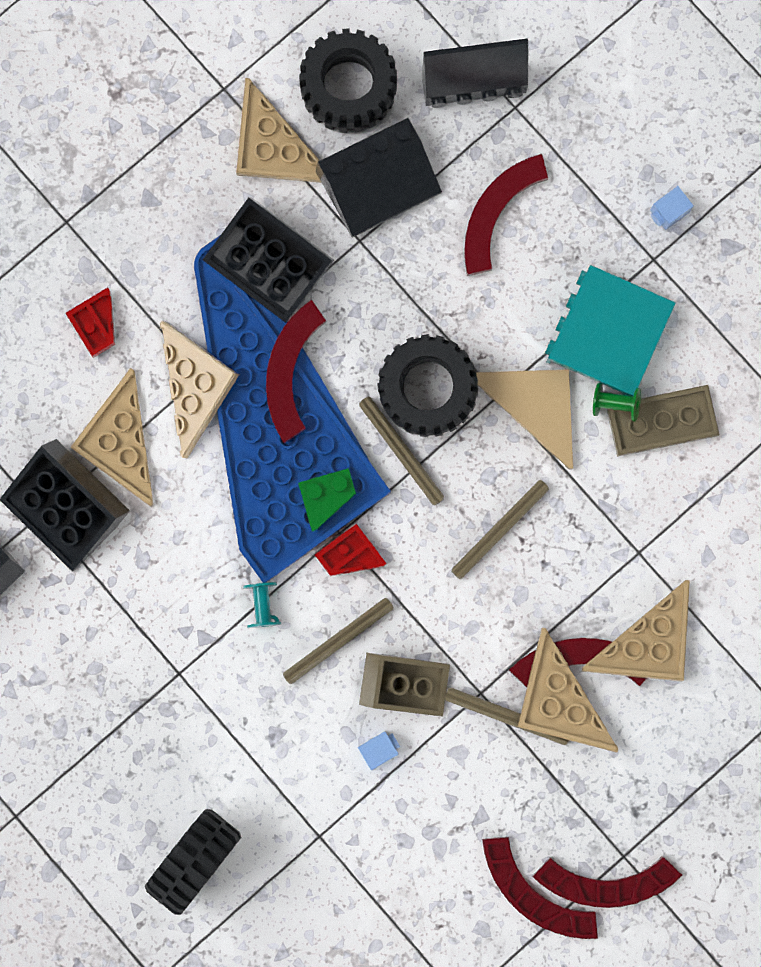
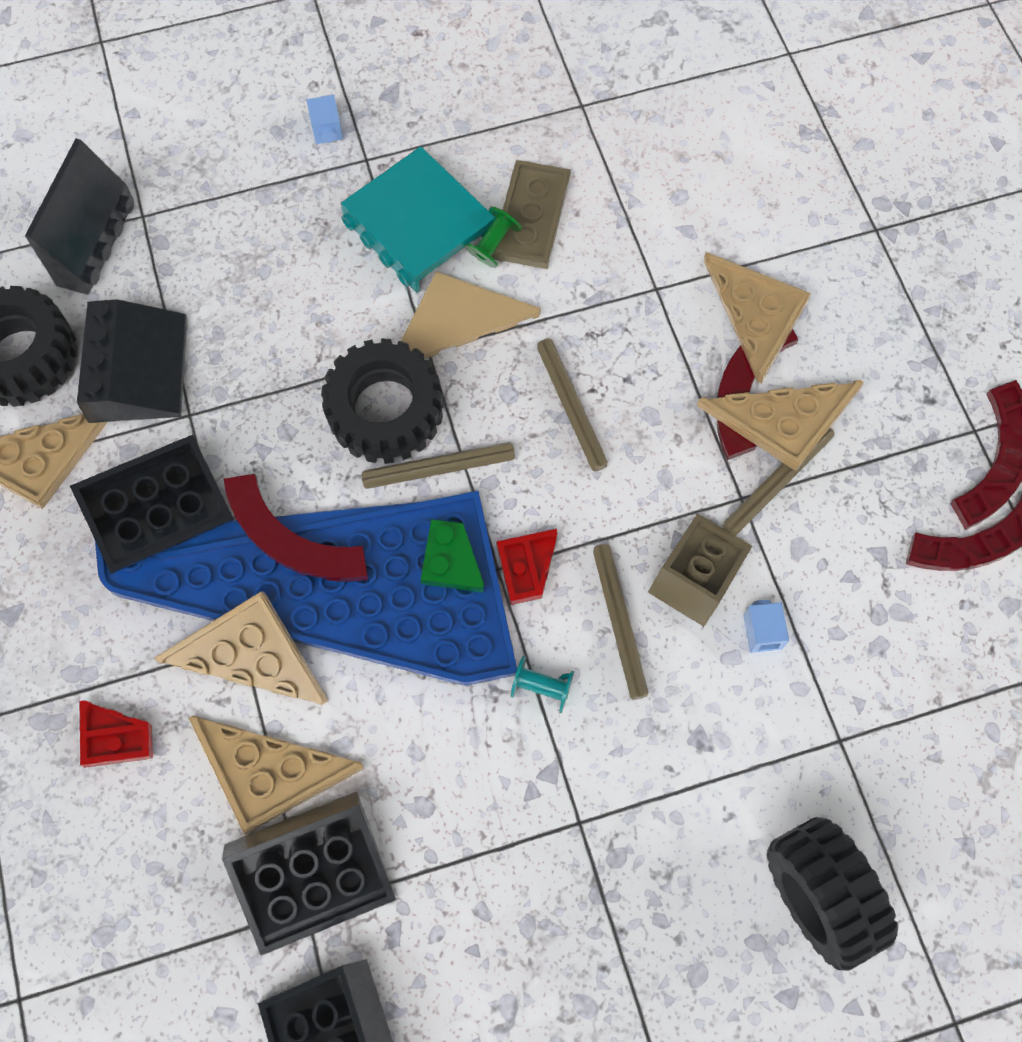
camera: 65 degrees left, 15 degrees down
(490, 206) = (230, 278): dark red tile -> none

